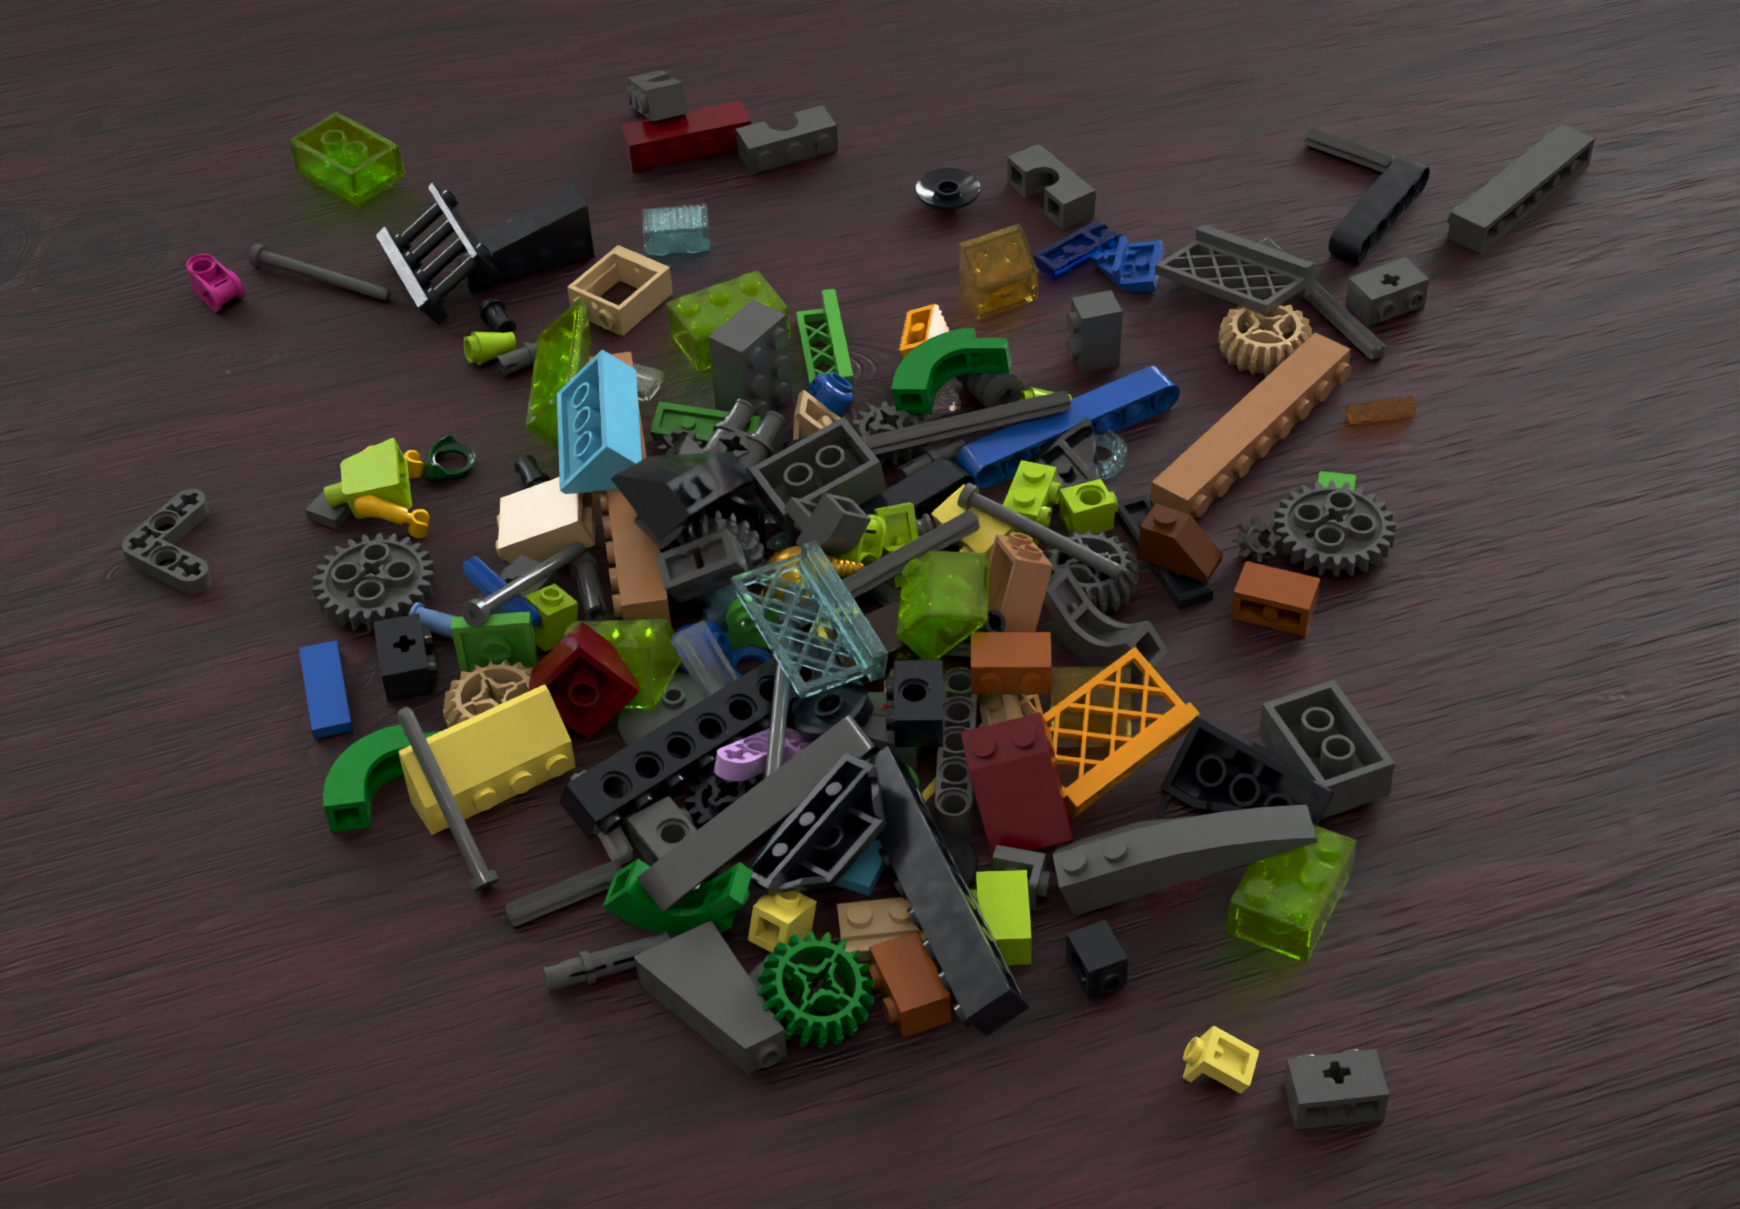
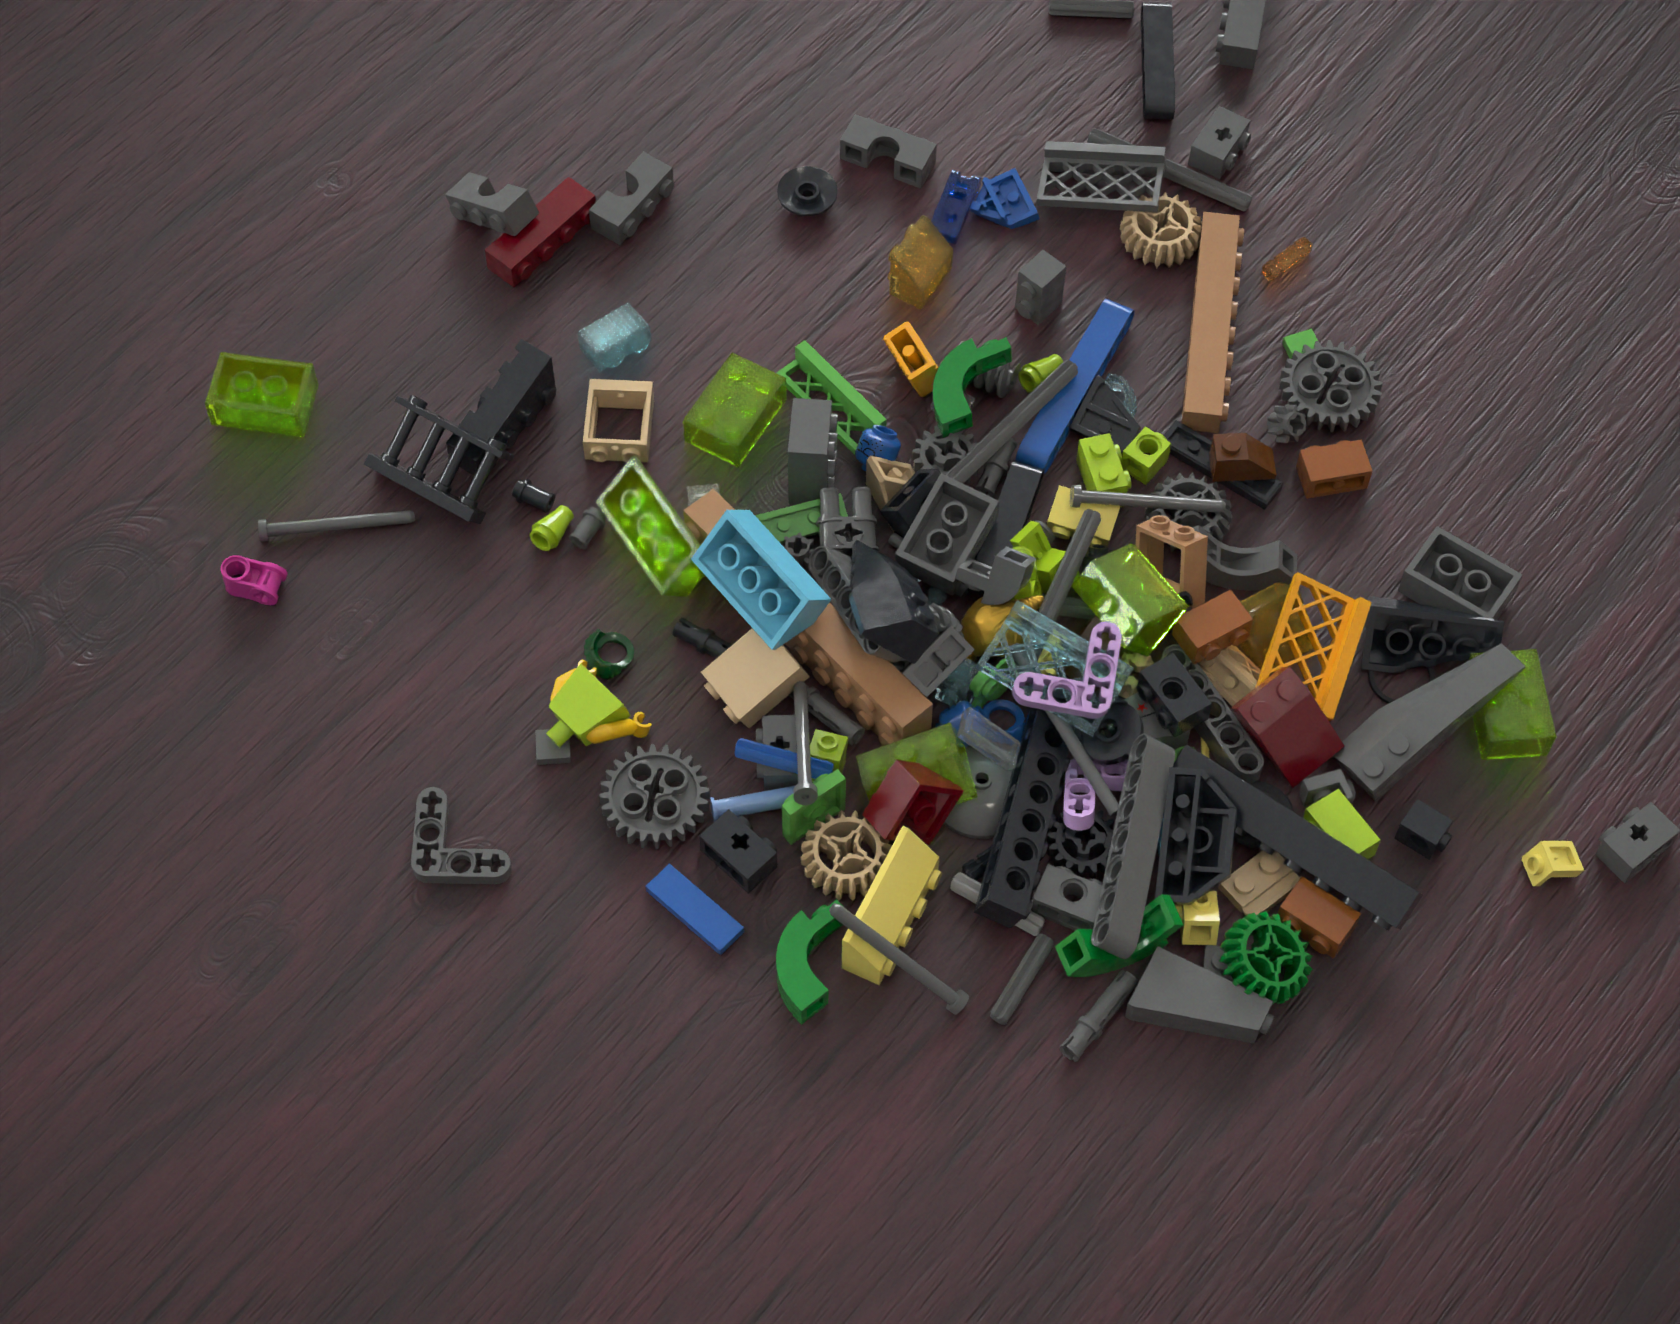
camera: 35 degrees left, 15 degrees up
(816, 645) = (1079, 690): none -> lavender beam

